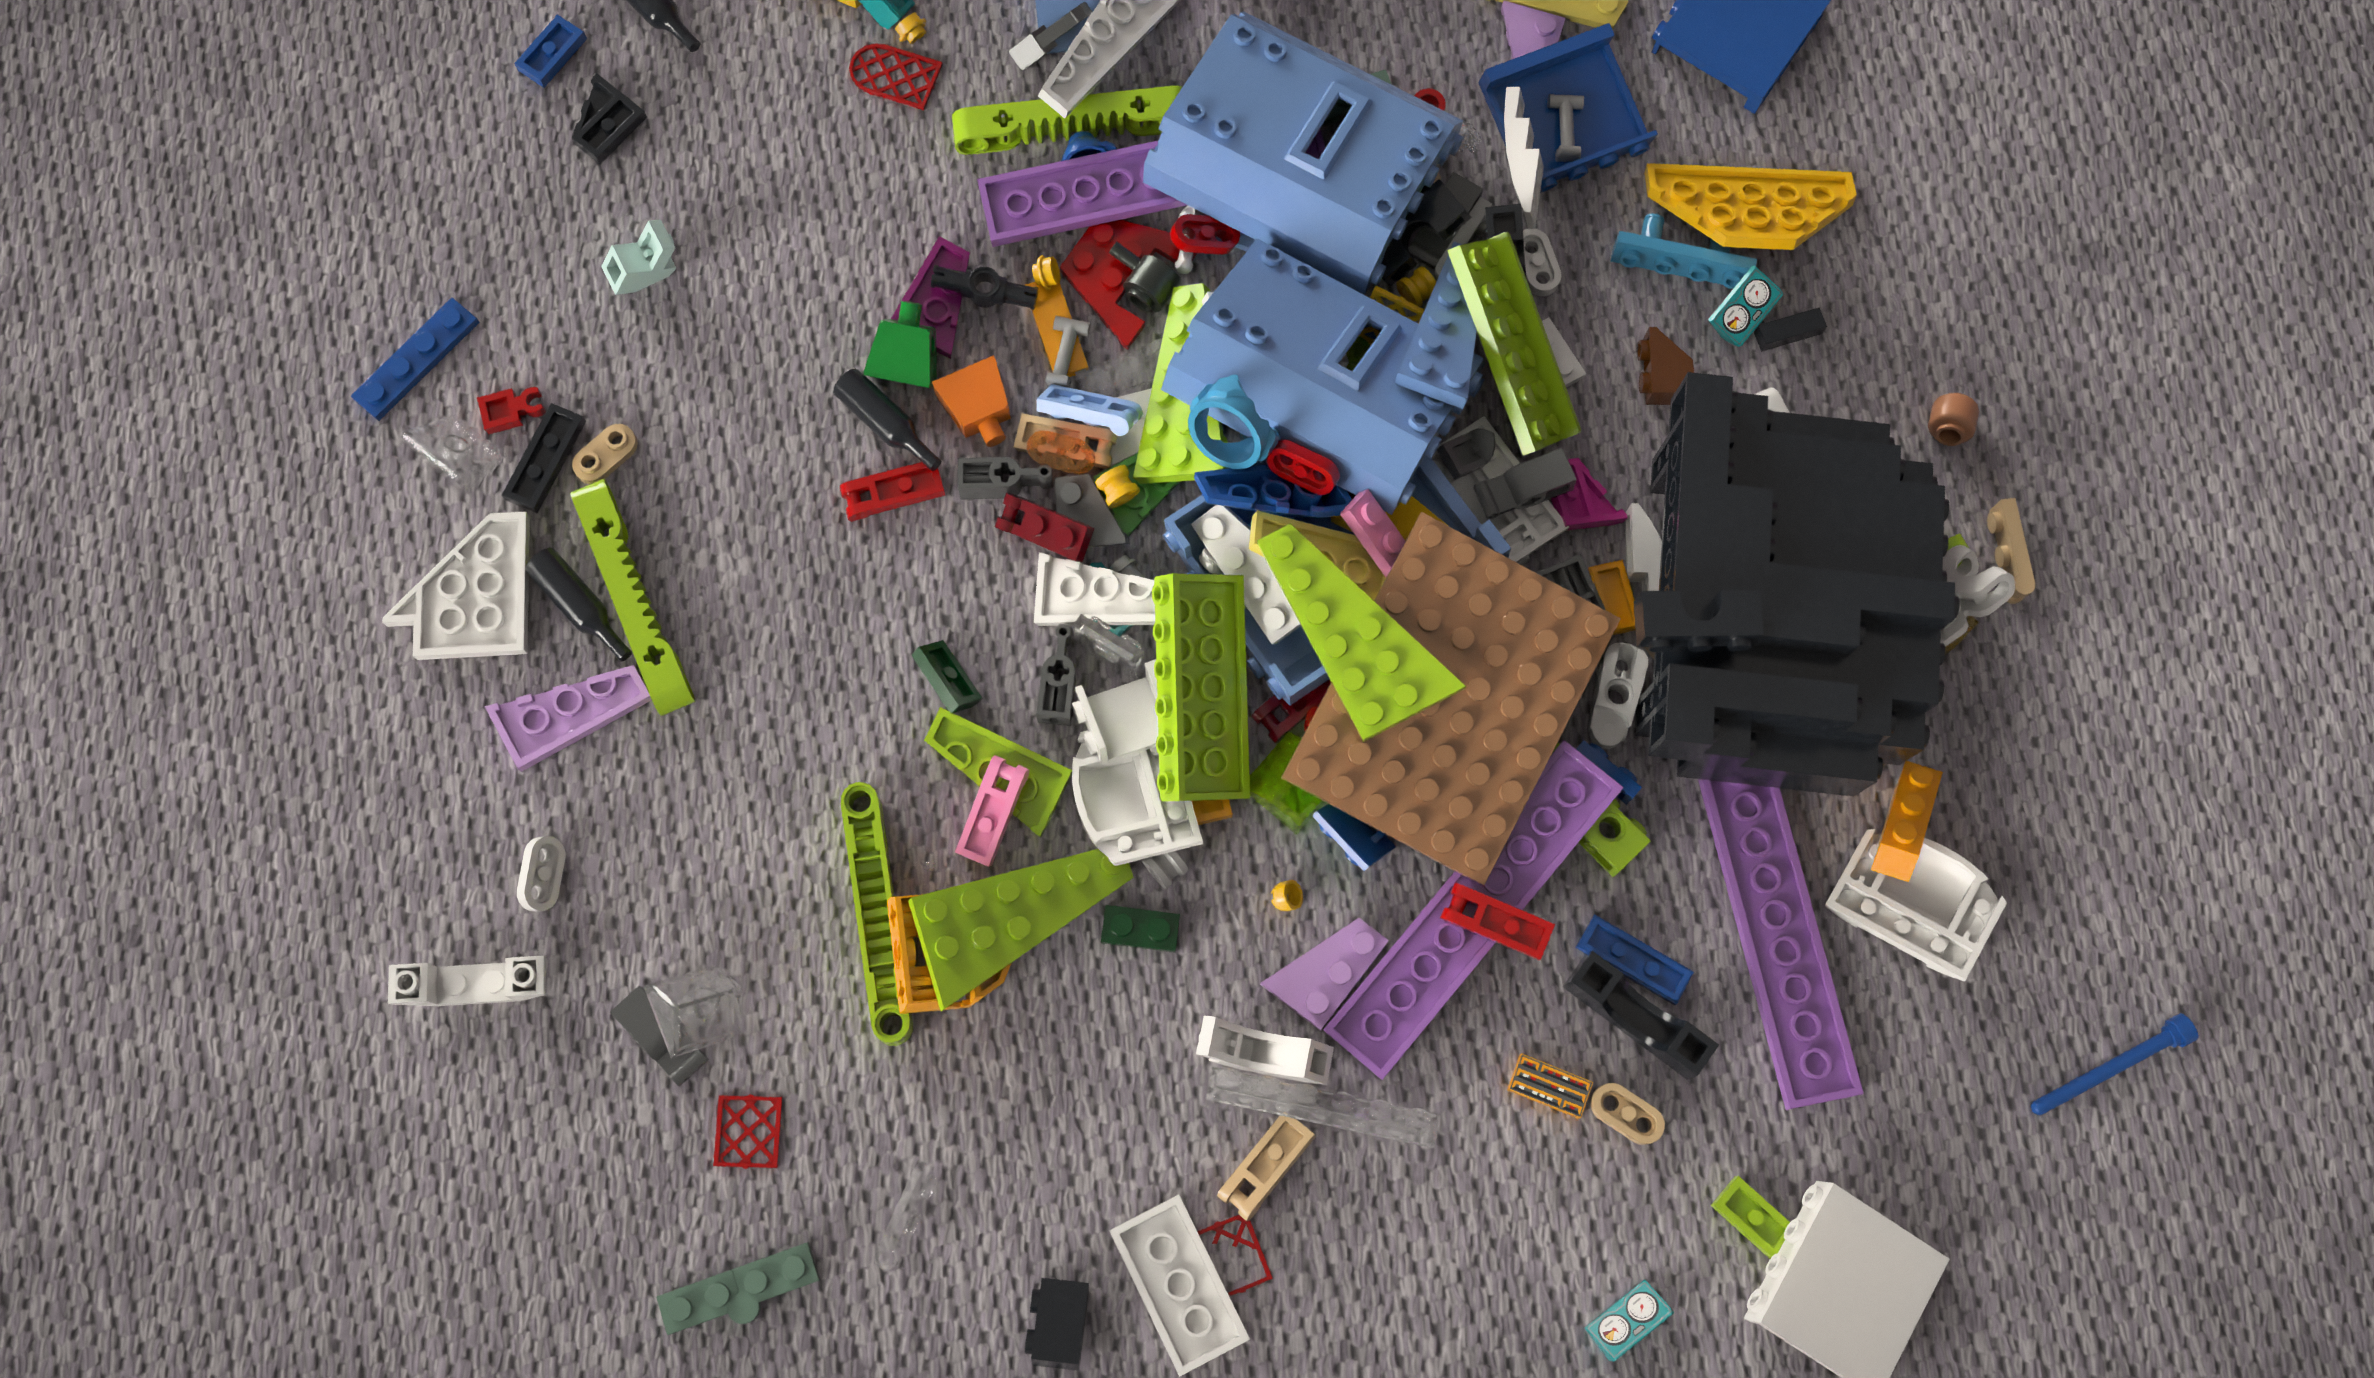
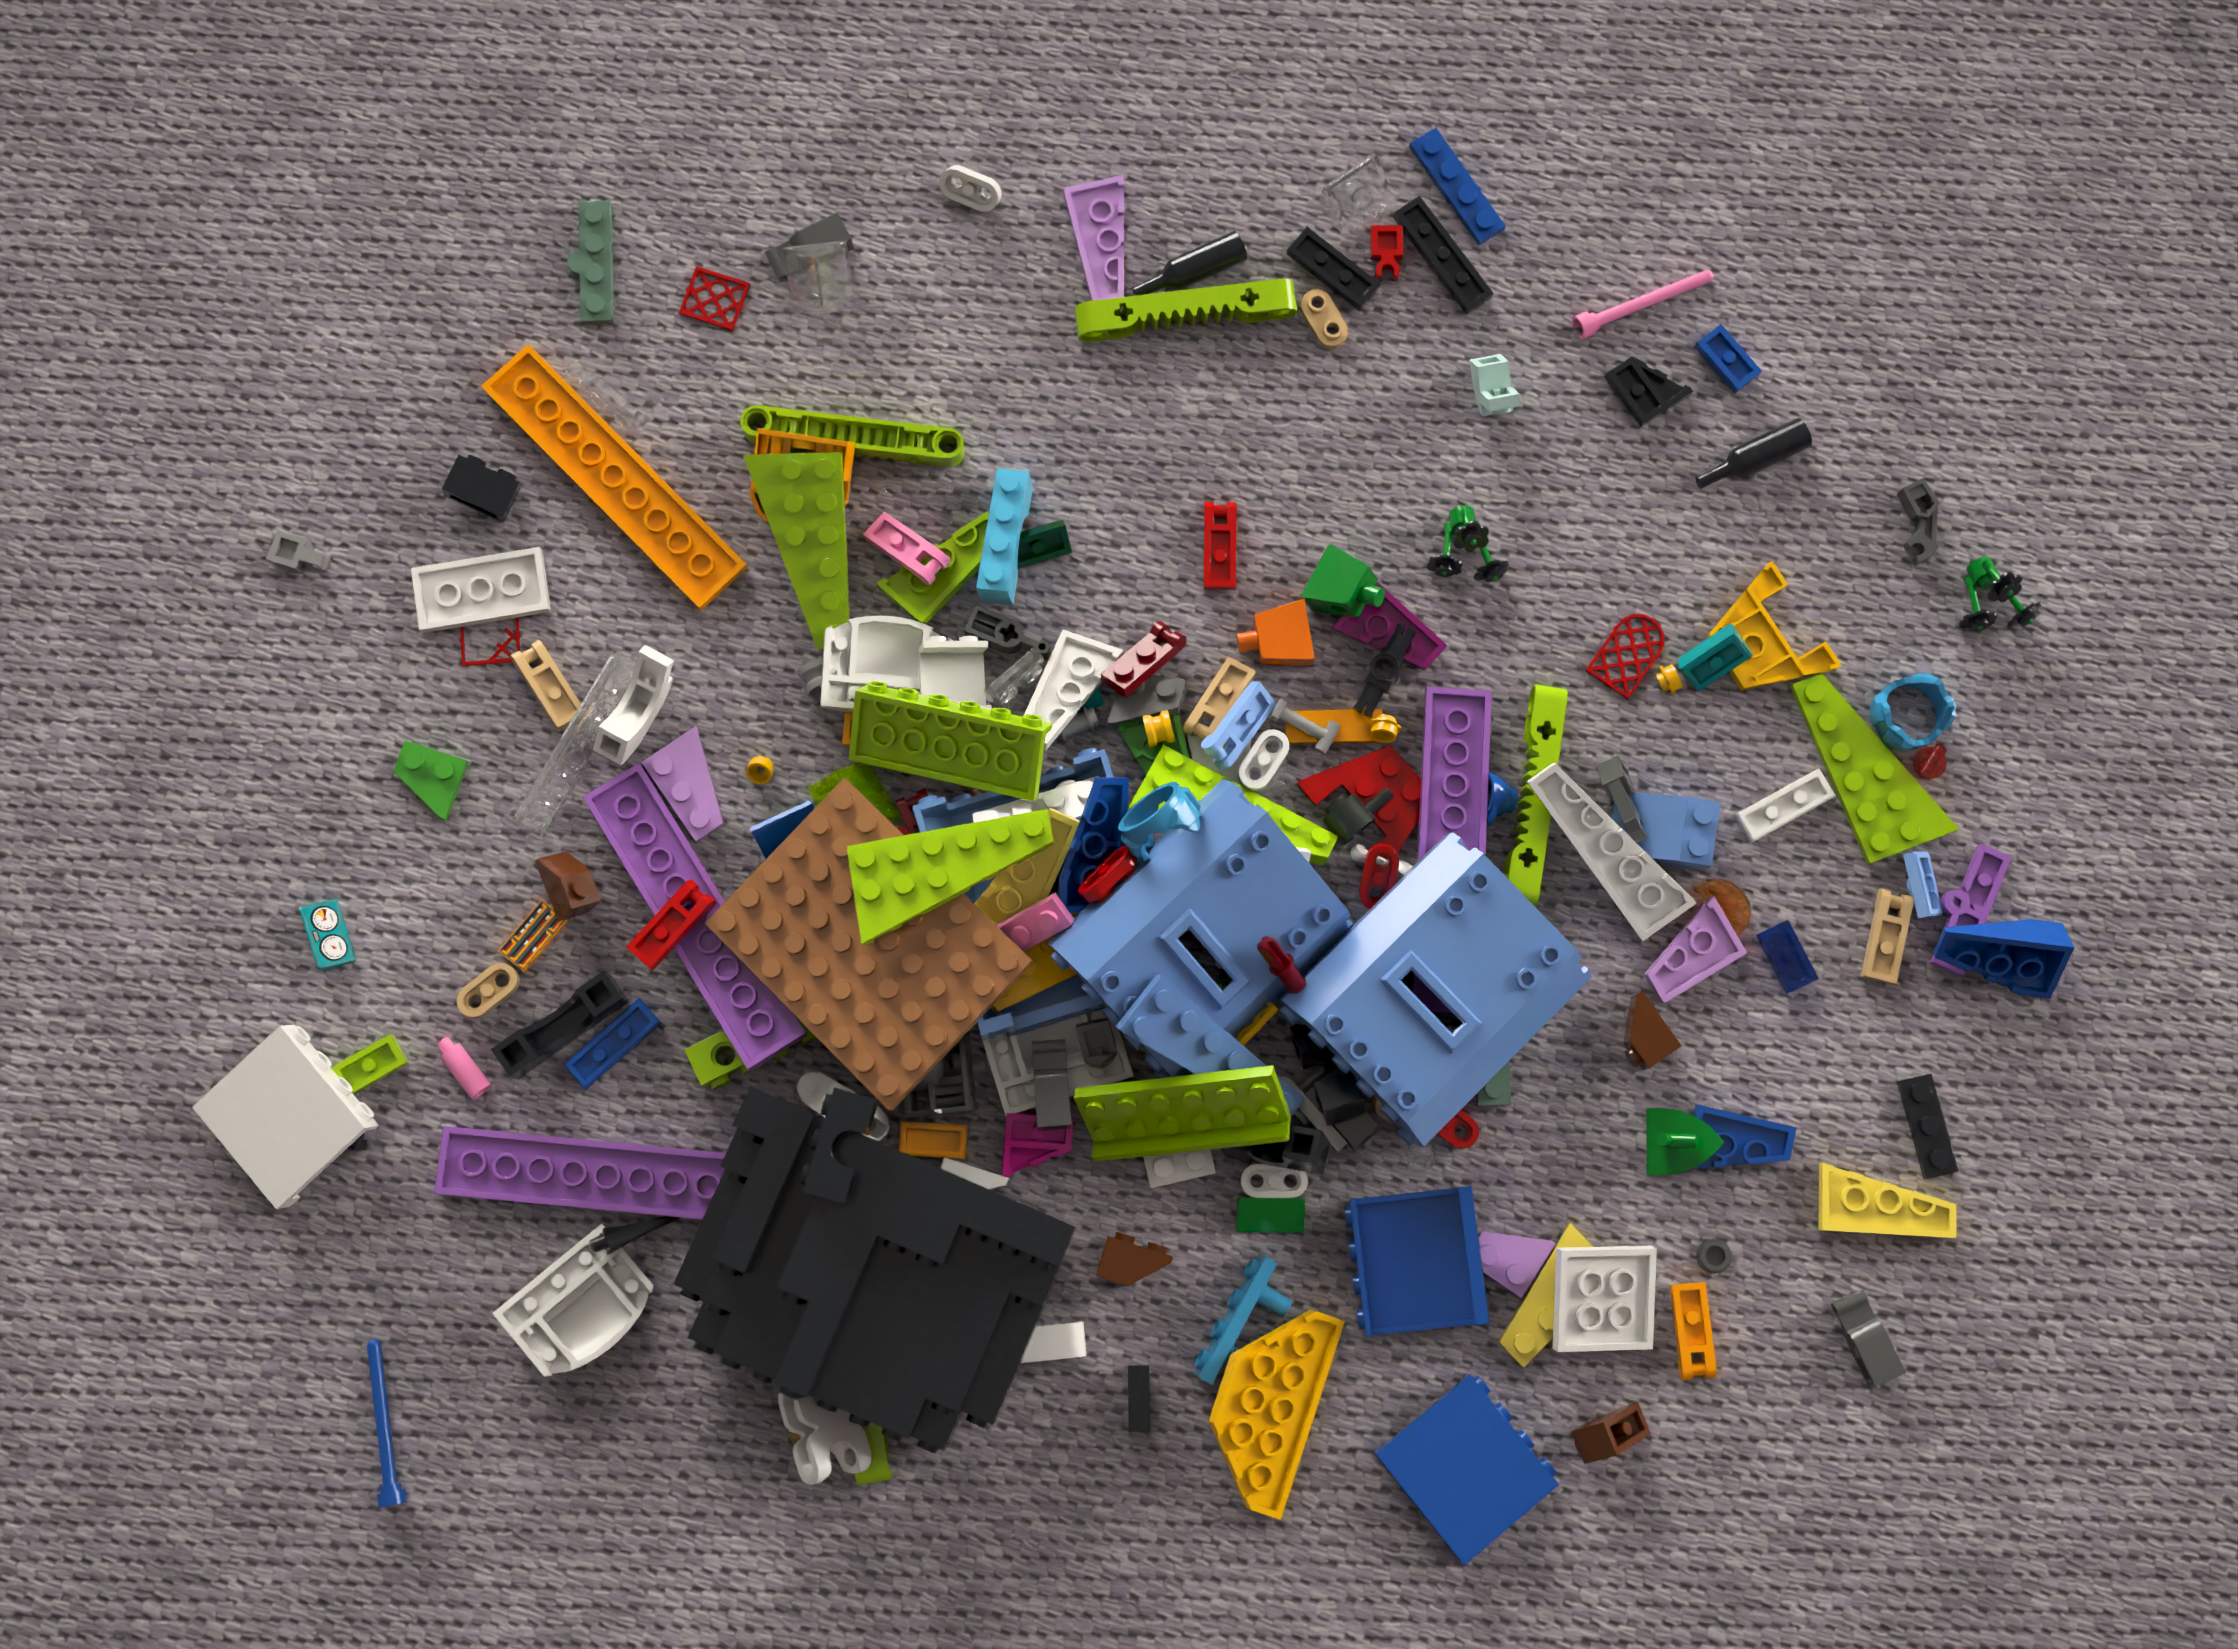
camera: 105 degrees right, 5 degrees up
(467, 984) = (906, 83): white slope -> none
(474, 596) = (1225, 188): white wing -> none
(500, 351) = (1443, 255): none -> black plate
(542, 187) = (1591, 322): none -> bright pink piece
(802, 254) = (1468, 536): none -> black plant
(882, 415) = (1287, 552): black piece -> none
(947, 706) = (999, 556): none -> medium azure arch
(983, 477) = (1209, 631): dark grey piece -> none
(996, 1178) = (614, 477): none -> light orange plate
(1062, 444) = (1210, 694): clear orange beam -> none
(1119, 375) = (1262, 760): none -> white plate
(1140, 928) = (773, 643): dark green plate -> none
(1338, 277) = (1281, 965): none -> dark red axle
(1411, 1267) = (431, 775): none -> bright green wing
(1417, 287) = (1279, 1057): yellow wheel -> none
(1484, 1061) = (568, 885): none -> reddish brown slope
(1524, 162) = (1360, 1188): white slope -> none
(1566, 103) = (1423, 1261): light grey piece -> none
(1571, 258) = (1270, 1215): none -> green slope
(1620, 775) = (790, 1066): blue plate -> none
(1719, 1111) = (463, 1068): none -> bright pink cylinder
(1745, 307) = (1169, 1358): slope -> none
(1835, 878) = (619, 1236): none -> black piece
(1907, 821) = (642, 1315): light orange brick -> none
(1953, 419) = (1003, 1518): nougat head -> none
(2012, 547) = (858, 1520): tan plate -> none

